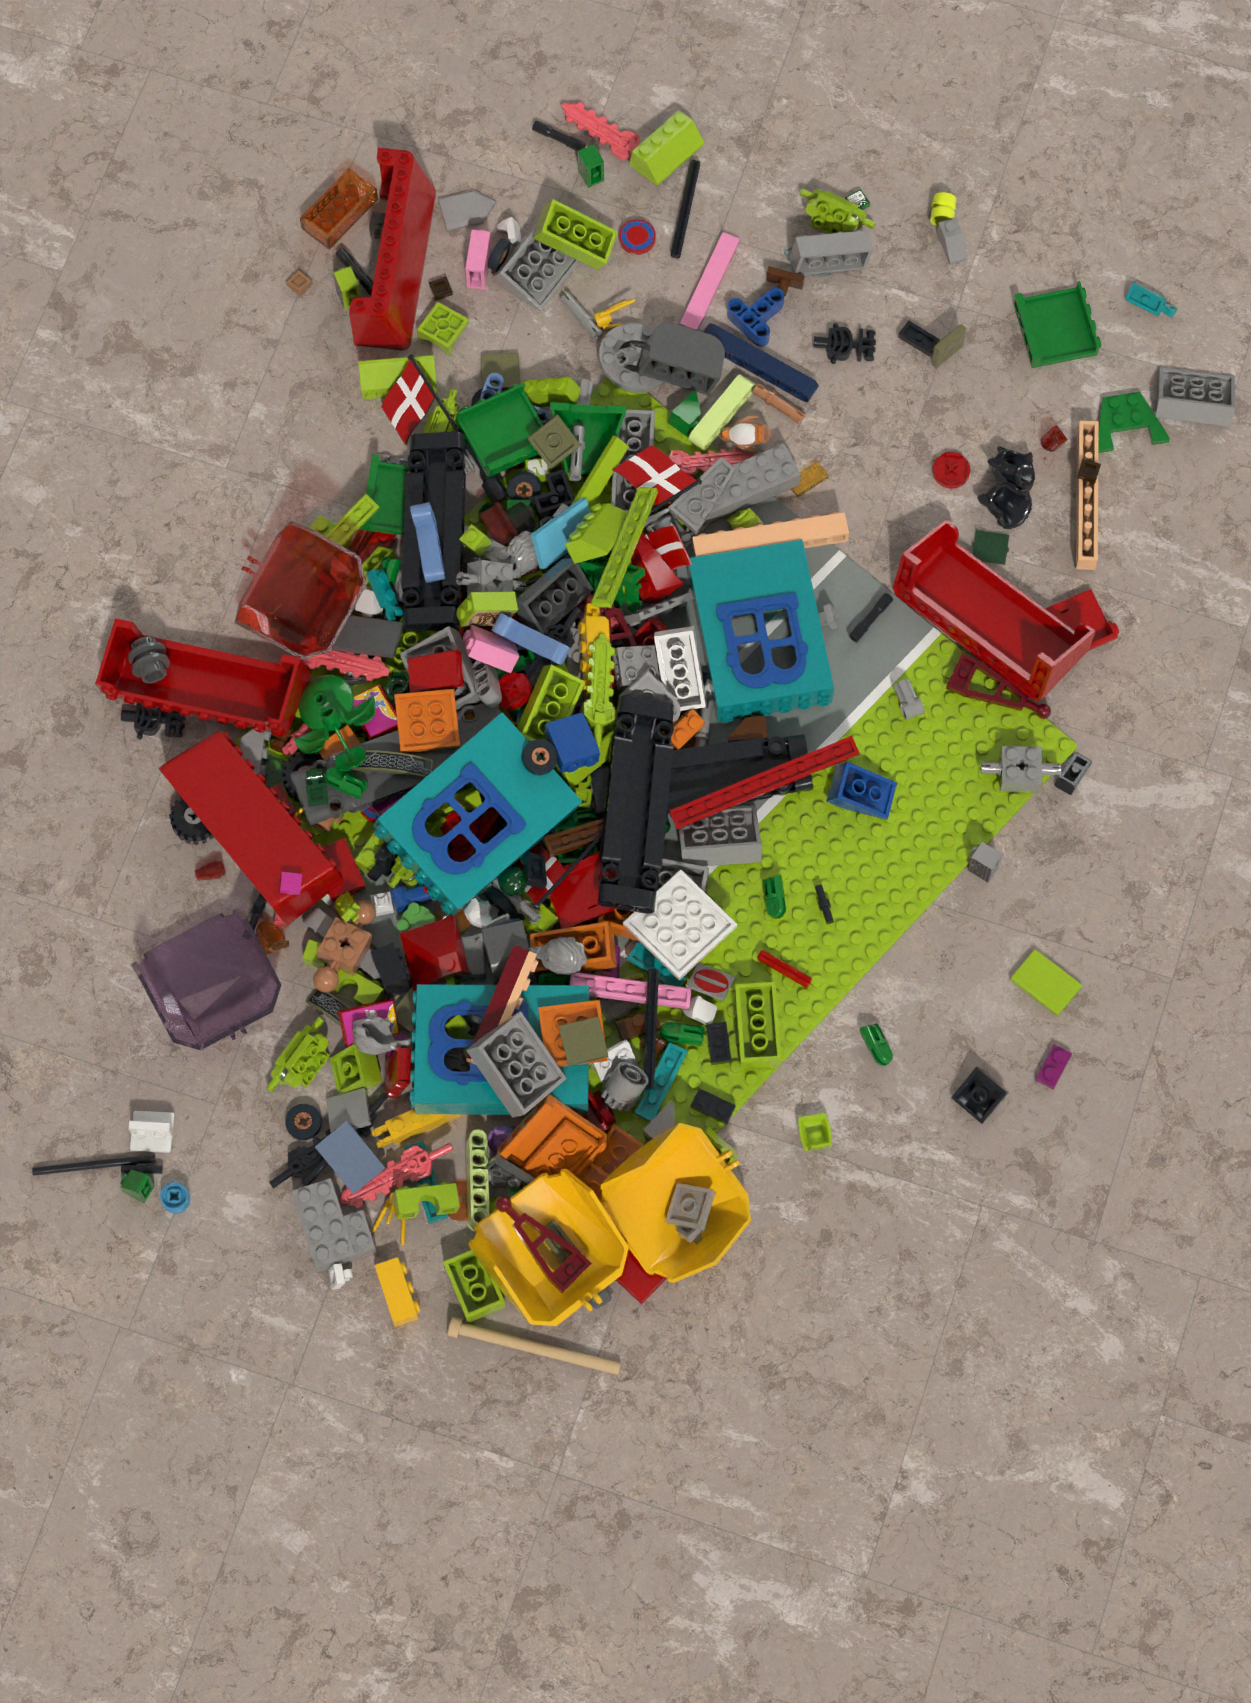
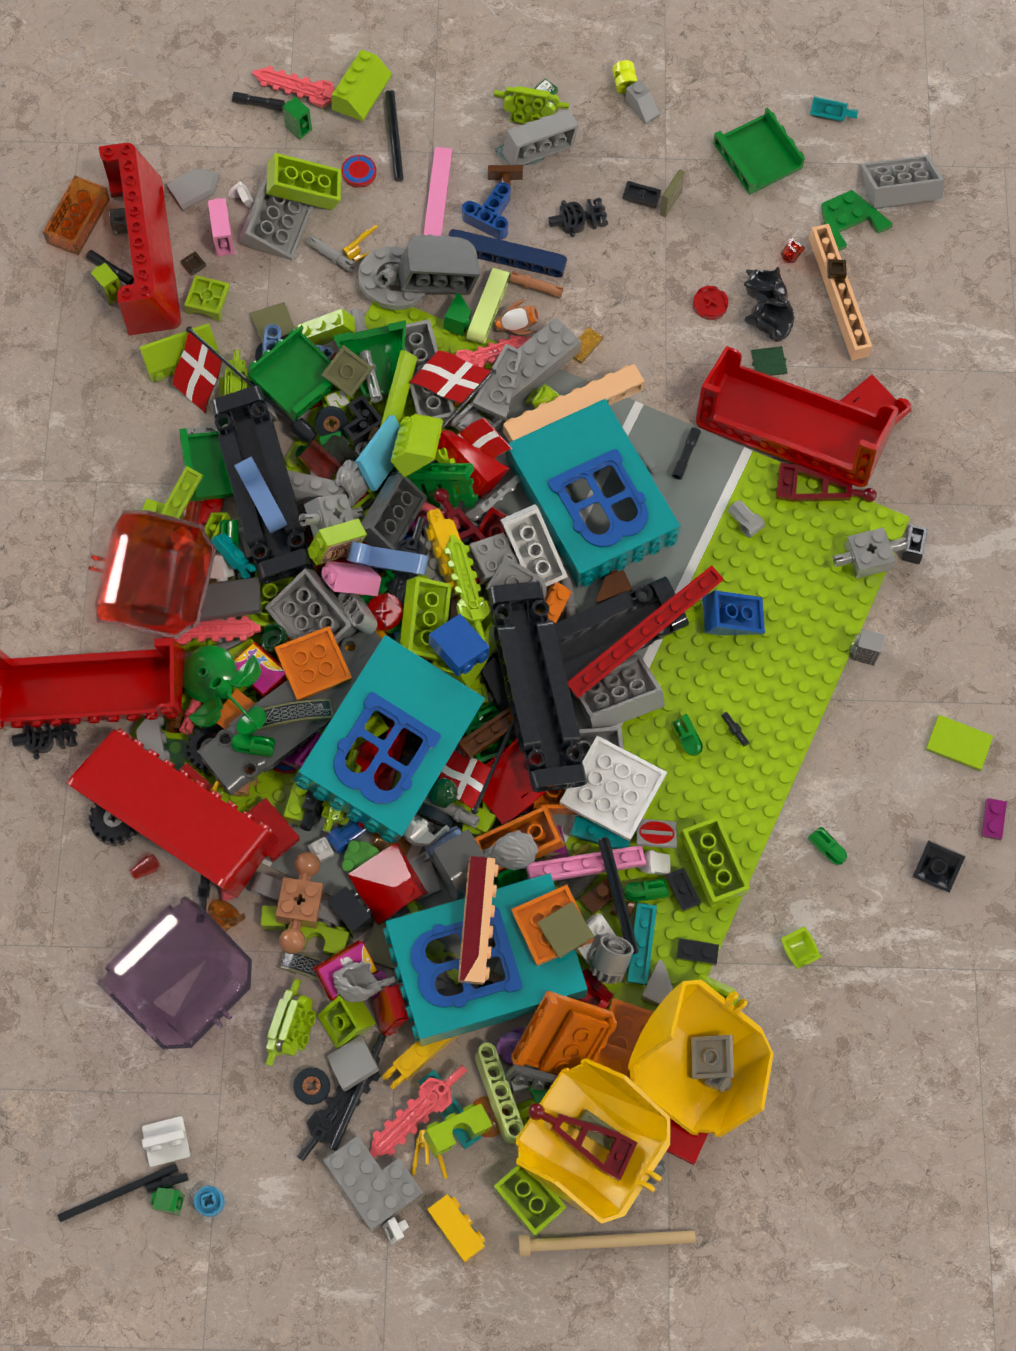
camera: 20 degrees left, 0 degrees up
(148, 659) = (24, 680): dark grey piece -> none
(291, 883) = (232, 858): dark pink tile -> none
(299, 282) = (59, 292): medium nougat tile -> none
(317, 792) = (228, 762): dark green plate -> none
(347, 907) = (291, 864): lime plate -> none
(350, 1157) = (370, 1108): sand blue tile -> none
(436, 671) = (306, 614): red piece -> none
(475, 540) = (303, 481): lime brick -> none
(499, 254) = (238, 218): black bush -> none
(516, 1065) = (510, 973): light grey slope -> none
(535, 870) = (461, 776): black plate -> none
(539, 767) = (442, 663): black bush -> none
(624, 547) = (447, 449): lime tile -> none
(784, 968) = (719, 800): red axle -> none

